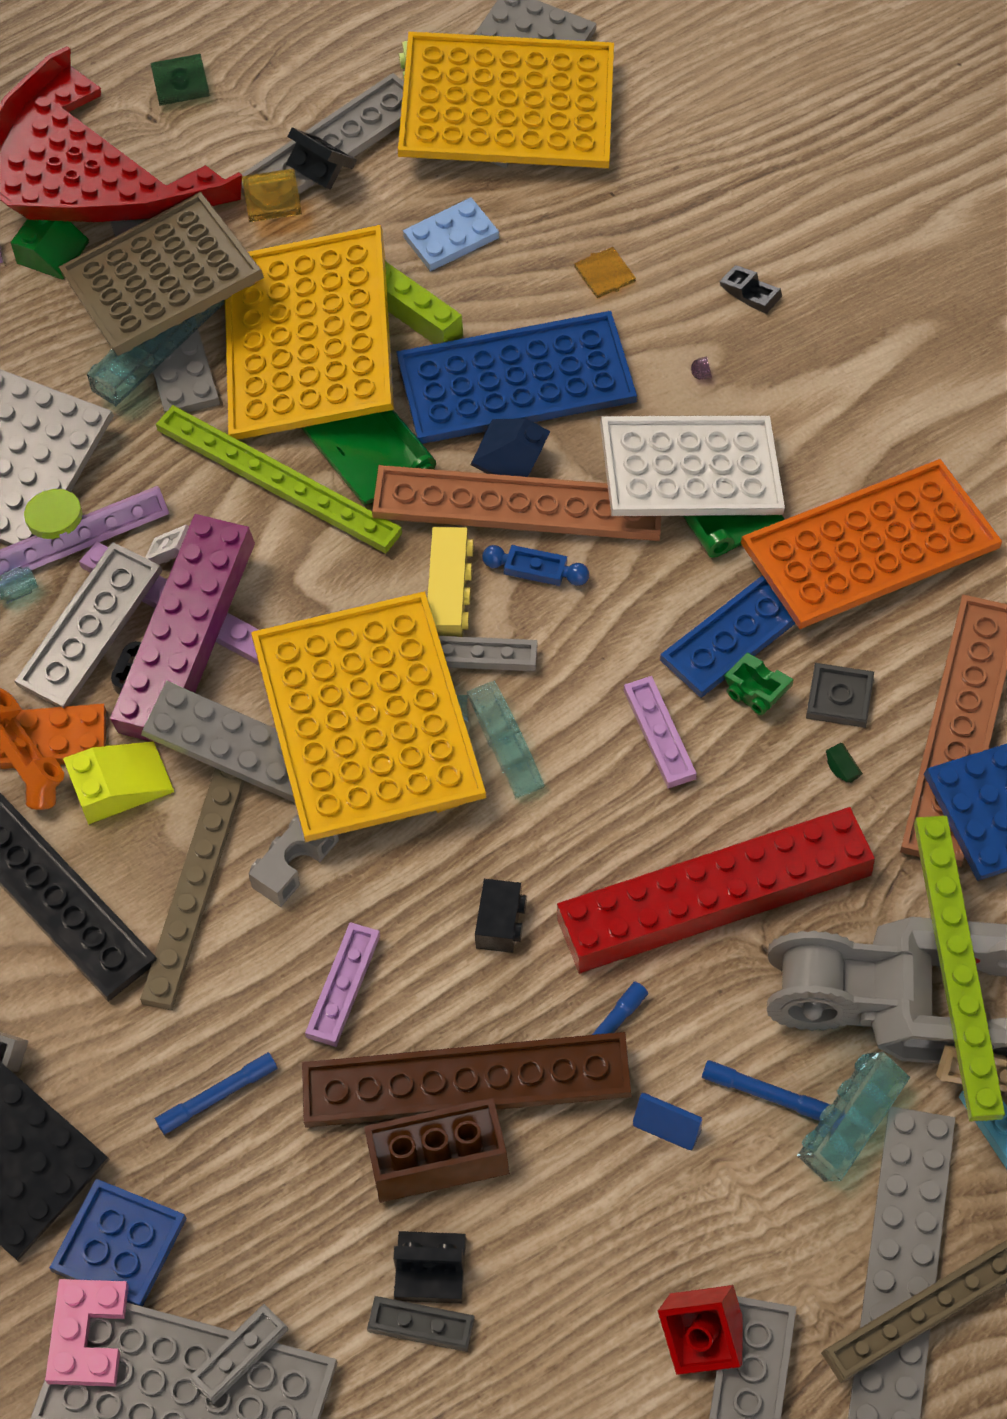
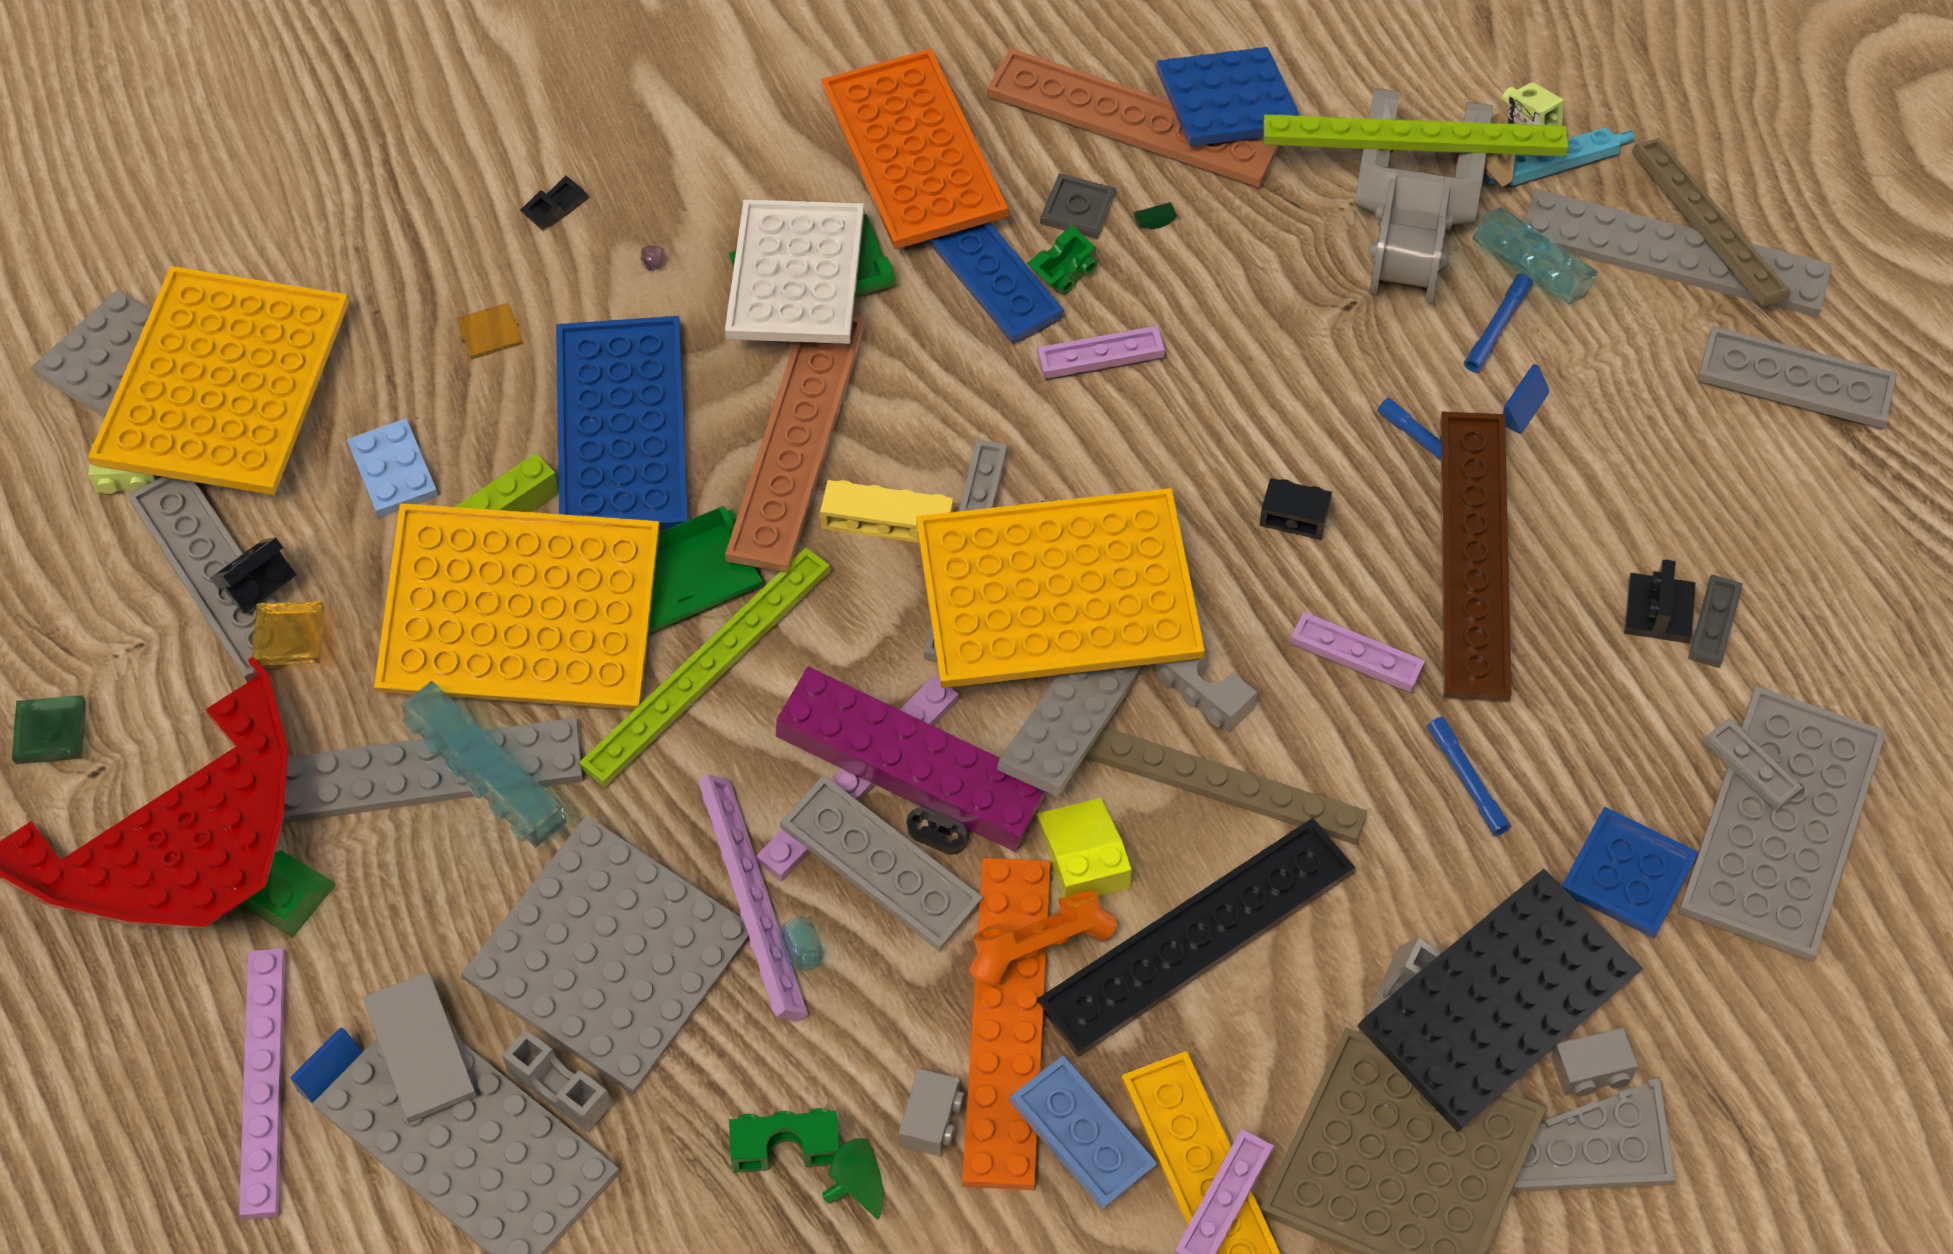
camera: 85 degrees left, 0 degrees up
(53, 513) = (724, 884): lime tile -> none
(69, 1357) = (1754, 913): bright pink plate -> none
(160, 273) = (397, 744): dark tan plate -> none
(167, 545) = (788, 771): white plate -> none
(437, 1150) = (1551, 580): reddish brown slope -> none
(505, 739) = (1092, 479): clear light blue slope -> none
(510, 447) = (725, 433): dark blue slope -> none
(535, 565) = (877, 434): blue plate -> none
(703, 1329) = (1735, 390): red slope -> none
(714, 889) = (1290, 331): red brick -> none

